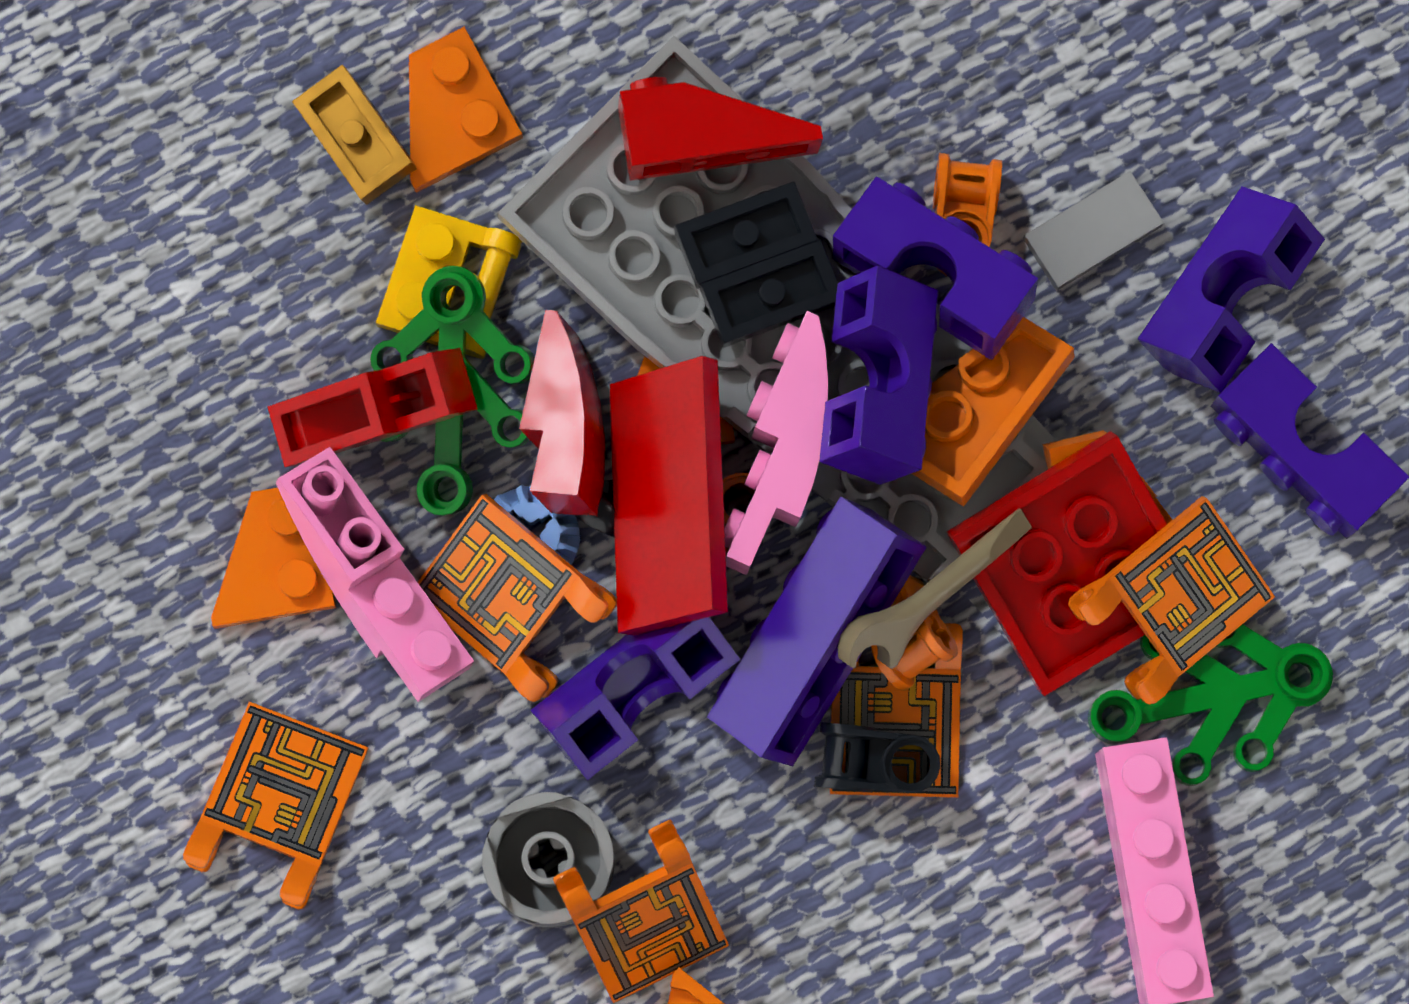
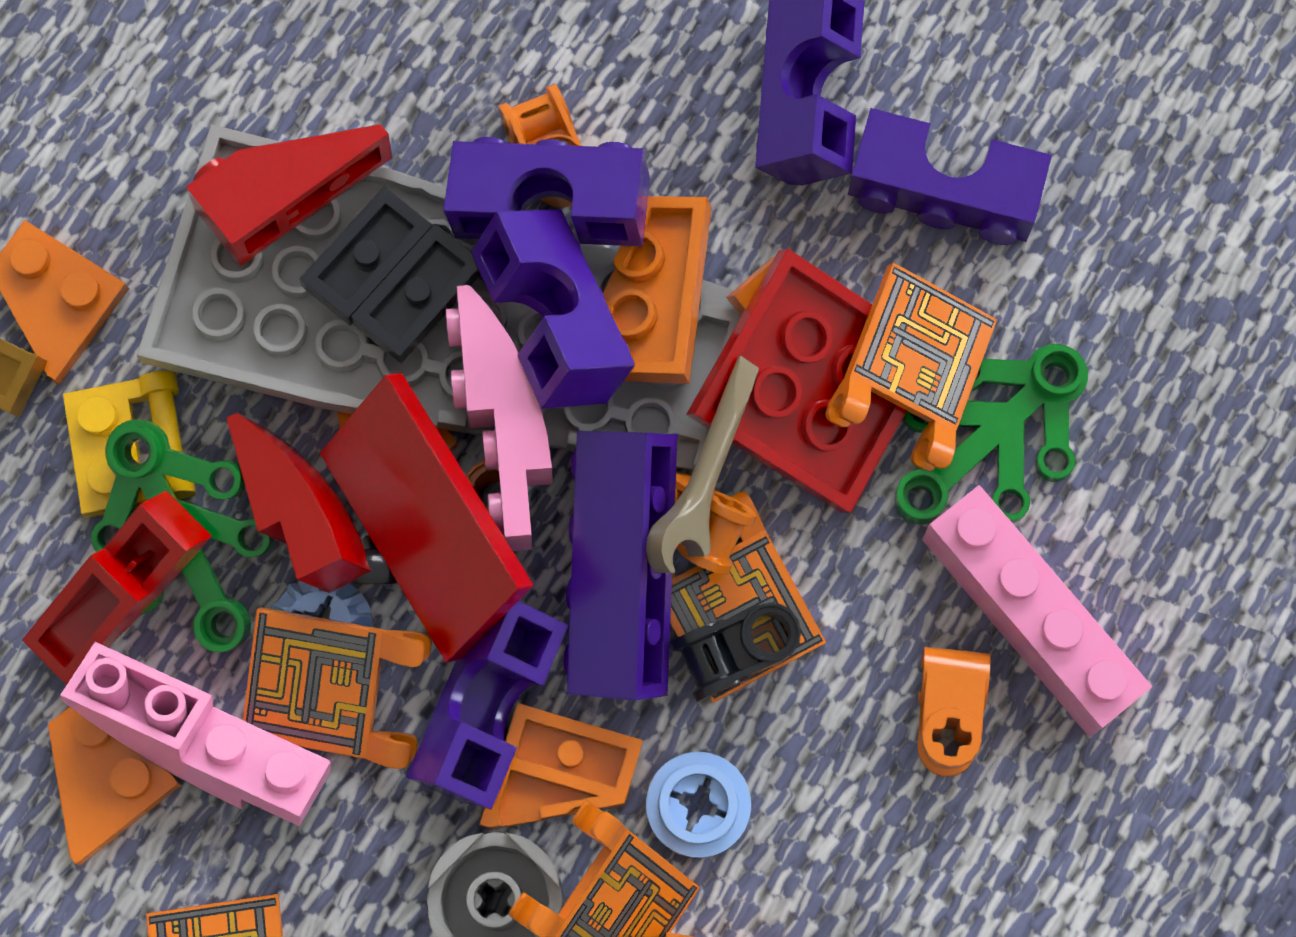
camera: 25 degrees left, 5 degrees down
(667, 778) = (560, 768): none -> orange wing
(770, 843) = (685, 776): none -> light blue gear
(1040, 908) = (953, 699): none -> orange piece
(1093, 230) = (666, 101): light grey tile -> none

